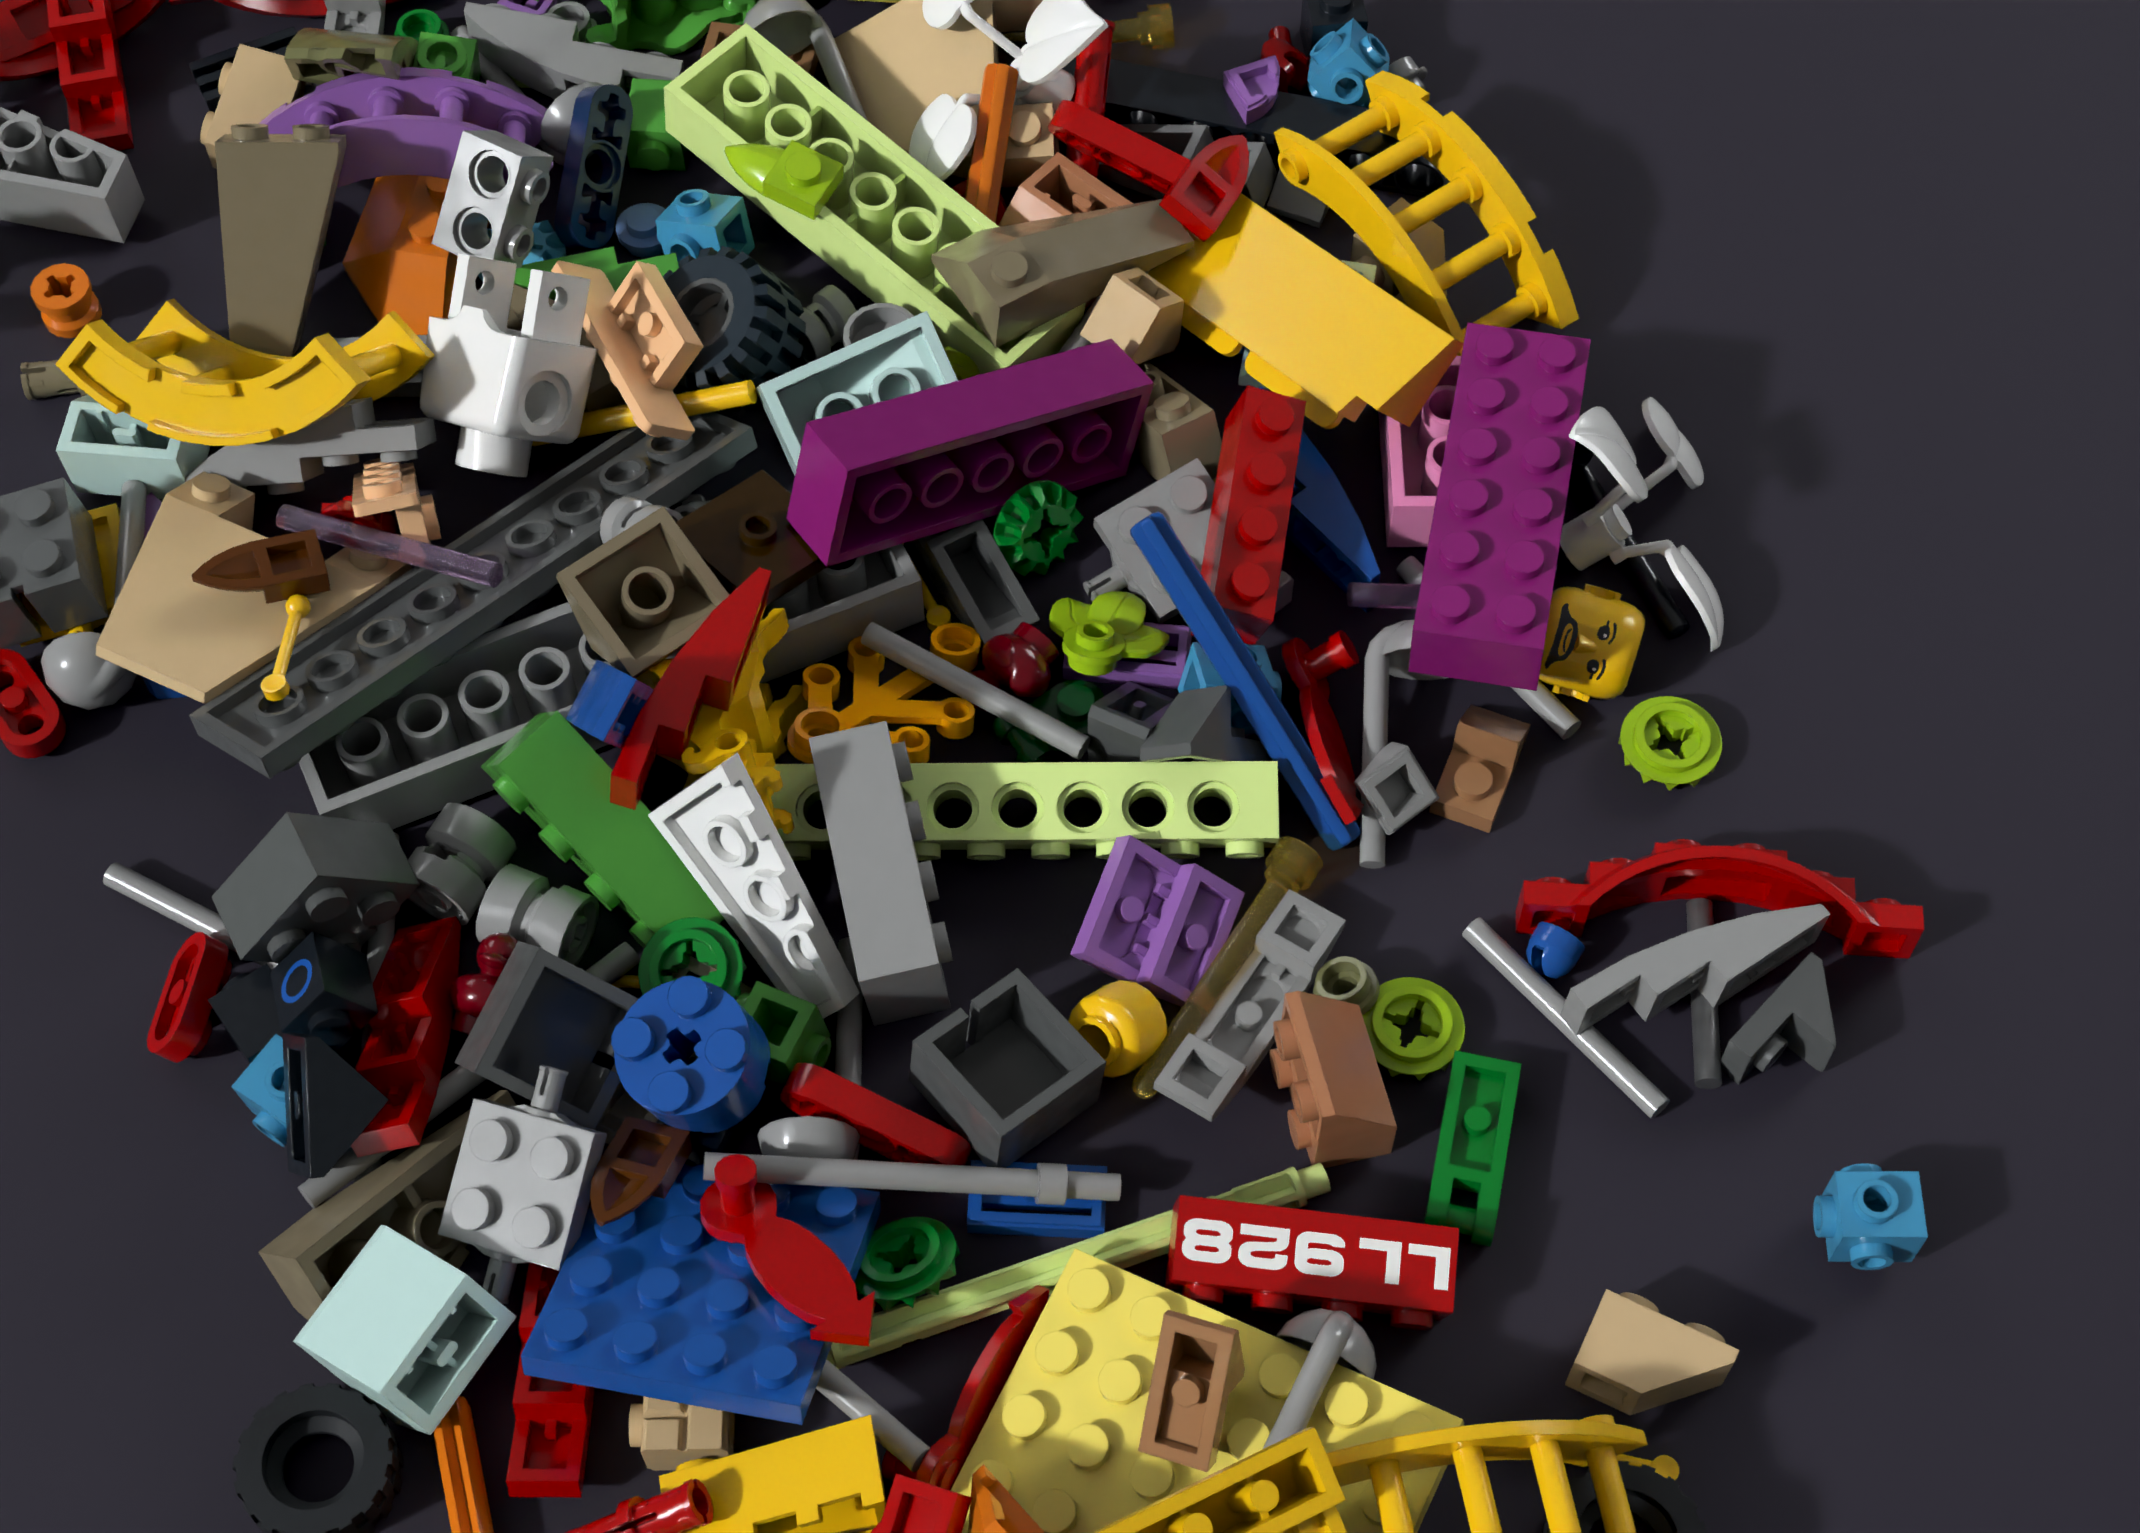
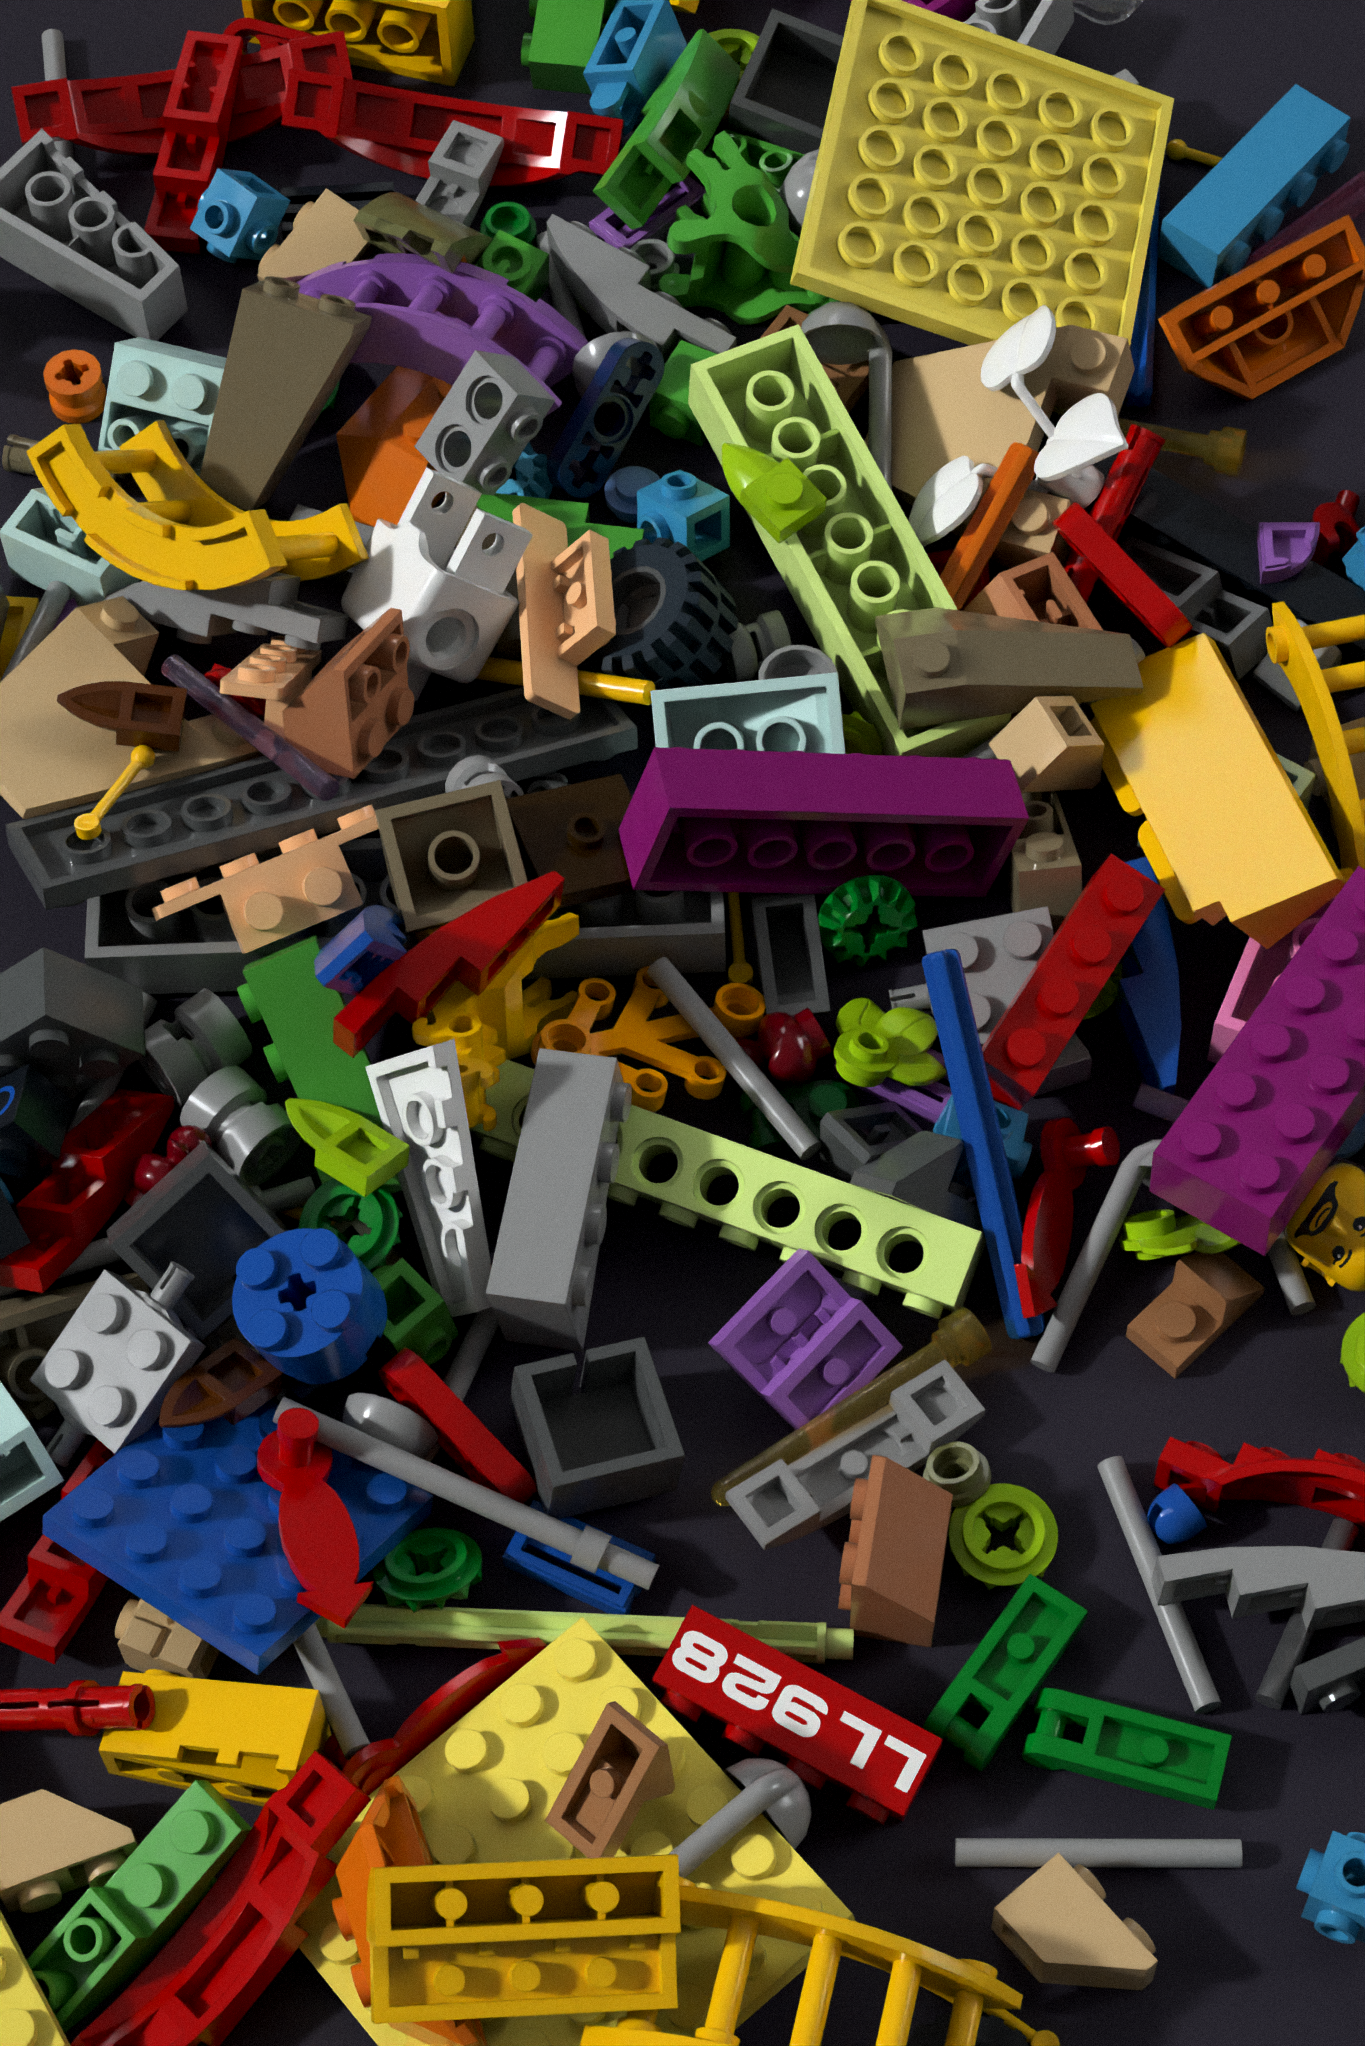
camera: 25 degrees right, 0 degrees up
(156, 266) = (161, 383): none -> light aqua slope
(160, 98) = (239, 215): none -> dark azure brick
(480, 484) = (354, 700): none -> nougat slope
(493, 684) = (282, 893): none -> light nougat bracket
(662, 893) = (348, 1144): none -> lime plate
(1121, 1024) = (721, 1428): yellow head -> none
(1209, 186) = (1182, 636): red plate -> none
(1395, 787) = (1091, 1299): light grey slope -> none
(1426, 708) = (1159, 1235): none -> lime plate
(1612, 1171) = (1128, 1747): none -> green plate
(1627, 1277) = (1099, 1852): none -> light grey bar

